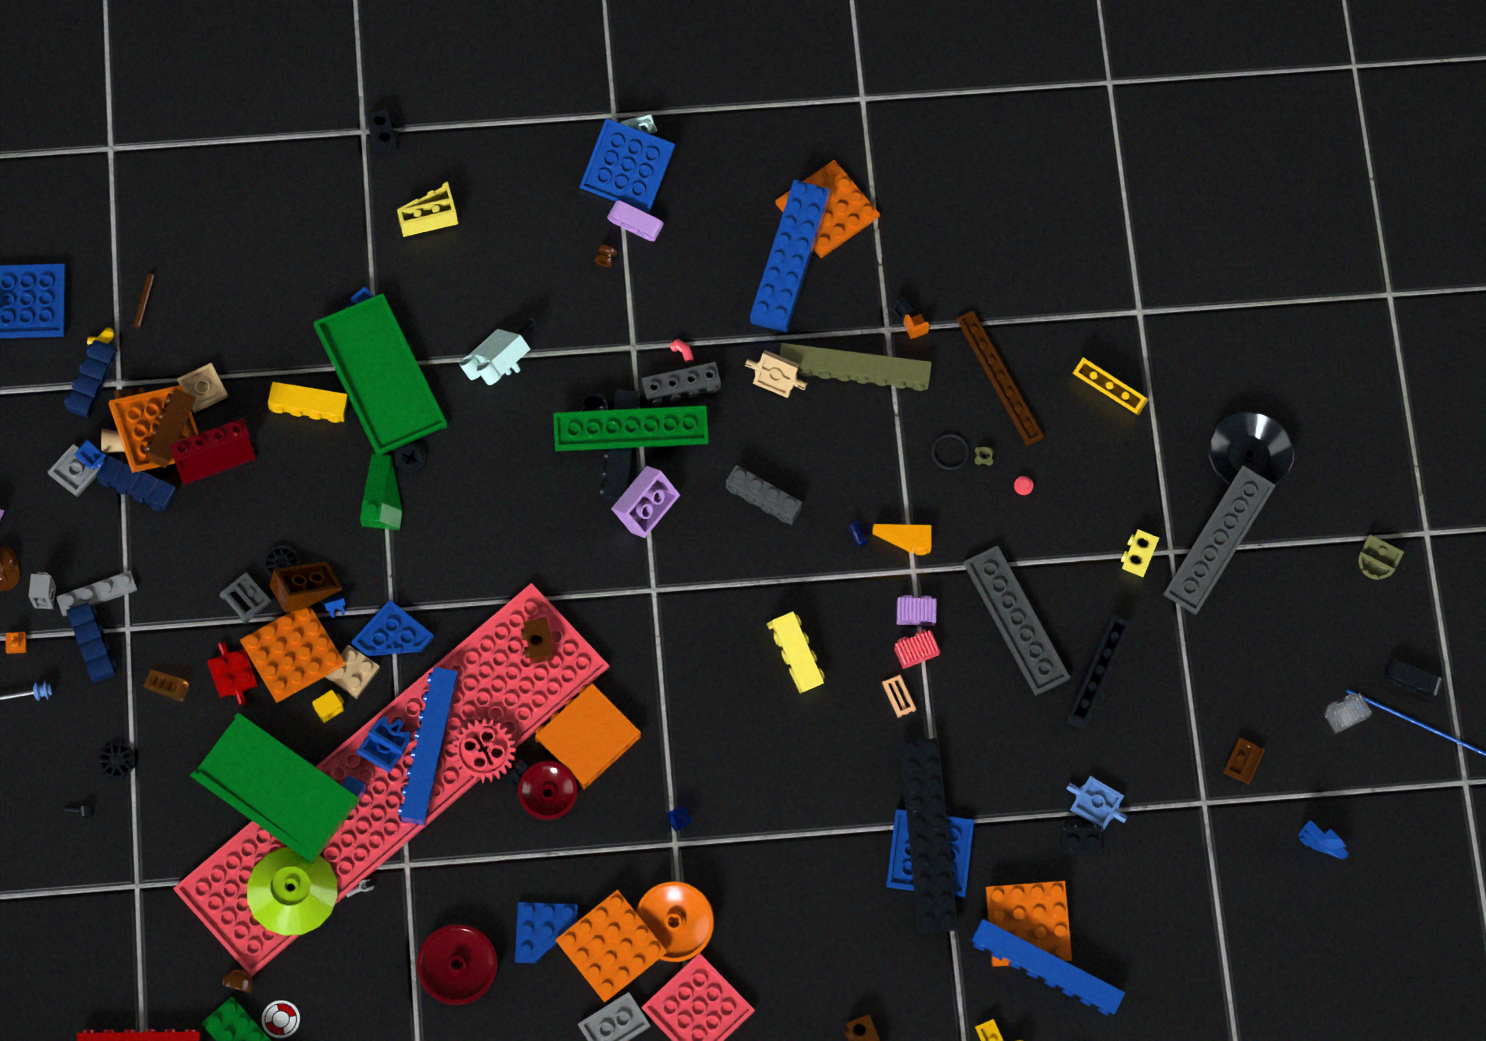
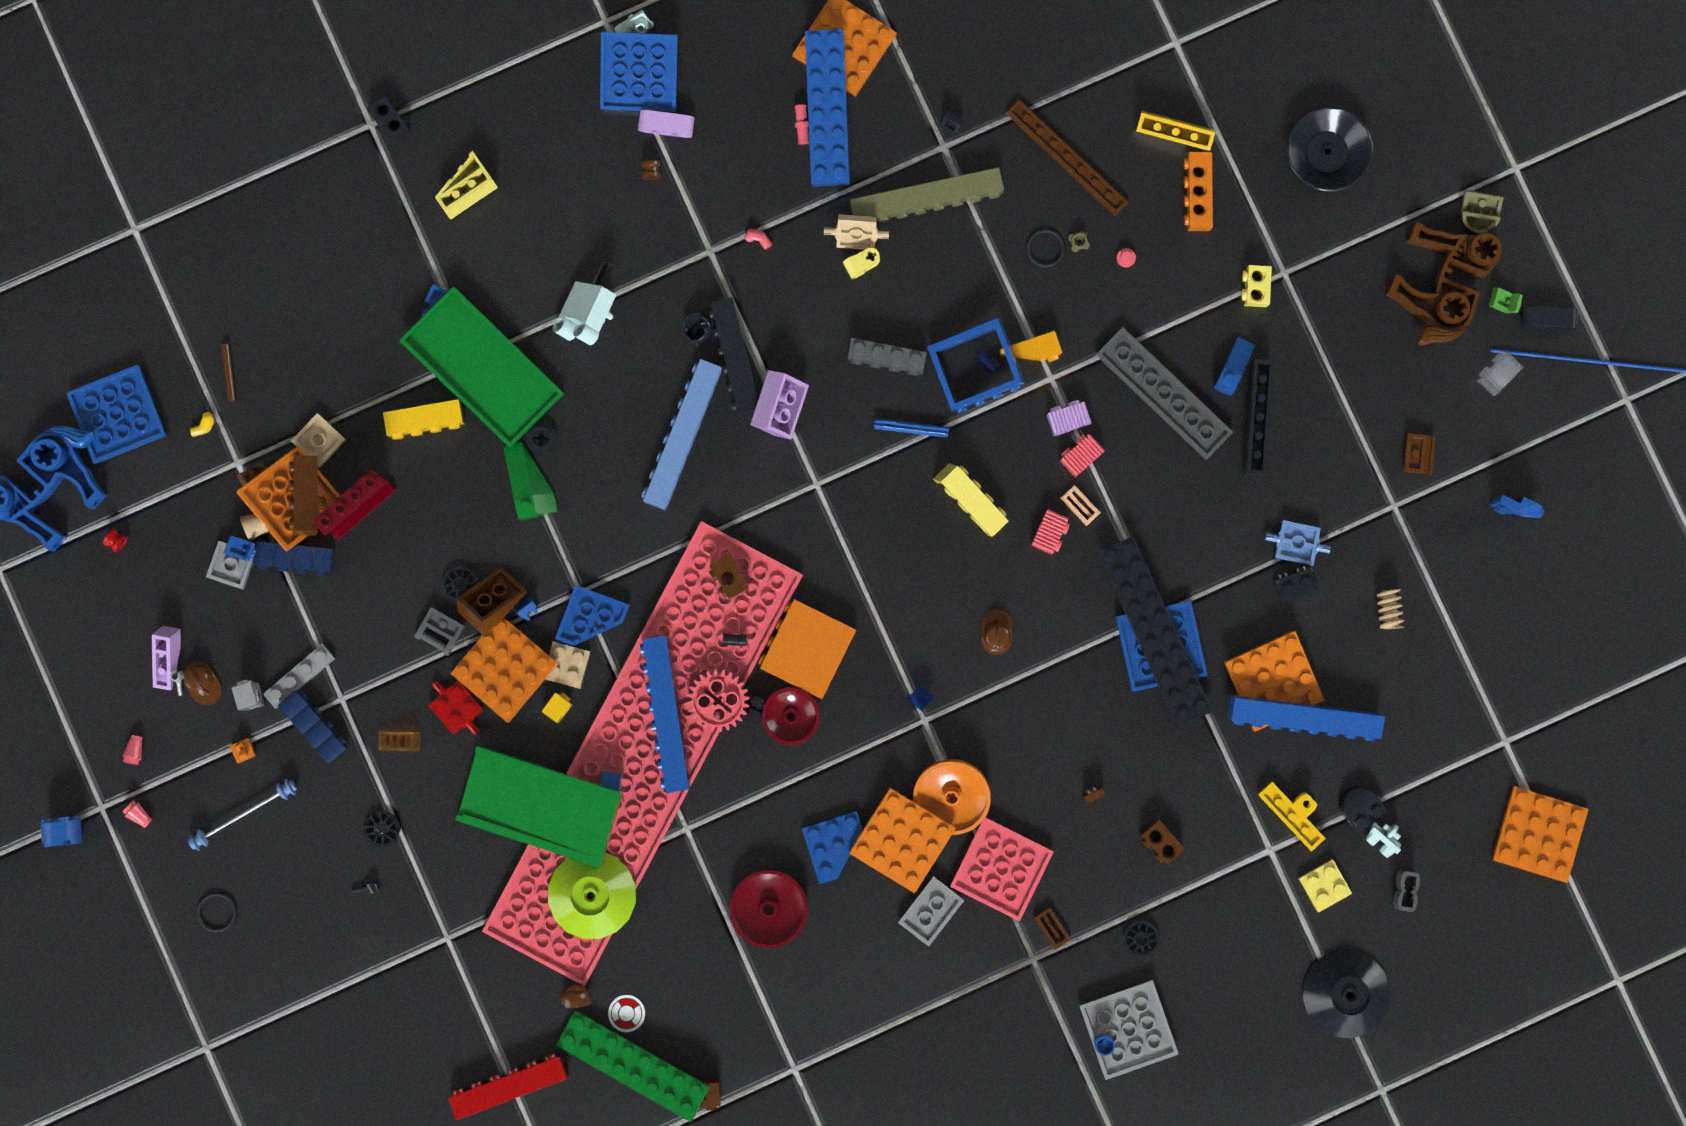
camera: 20 degrees left, 15 degrees up
(91, 378) = (209, 470): dark blue brick -> none
(362, 887) = (653, 866): light grey hand -> none
(385, 744) = (625, 727): blue plate -> none
(521, 700) = (735, 639): none -> black pin
(541, 503) = (683, 434): none -> medium blue brick
(630, 428) = (739, 338): green plate -> none
(681, 383) = (768, 273): dark grey brick -> none
(760, 263) = (802, 124): none -> coral pin
(763, 569) = (909, 427): none -> blue axle
(770, 404) = (858, 263): none -> light yellow piece
(775, 785) = (996, 632): none -> reddish brown piece
(813, 969) = (1093, 794): none -> reddish brown plate
(840, 502) = (963, 337): none -> blue window
(860, 709) = (1050, 531): none -> coral brick
(916, 326) = (970, 134): orange panel -> none
(1091, 619) = (1234, 366): none -> blue slope
(1107, 476) = (1203, 162): none -> orange brick
(1164, 896) = (1390, 609): none -> tan piece
(1219, 540) = (1328, 247): dark grey plate -> none
(1321, 634) = (1450, 305): none -> reddish brown animal
(1375, 648) = (1505, 301): none -> bright green bracket

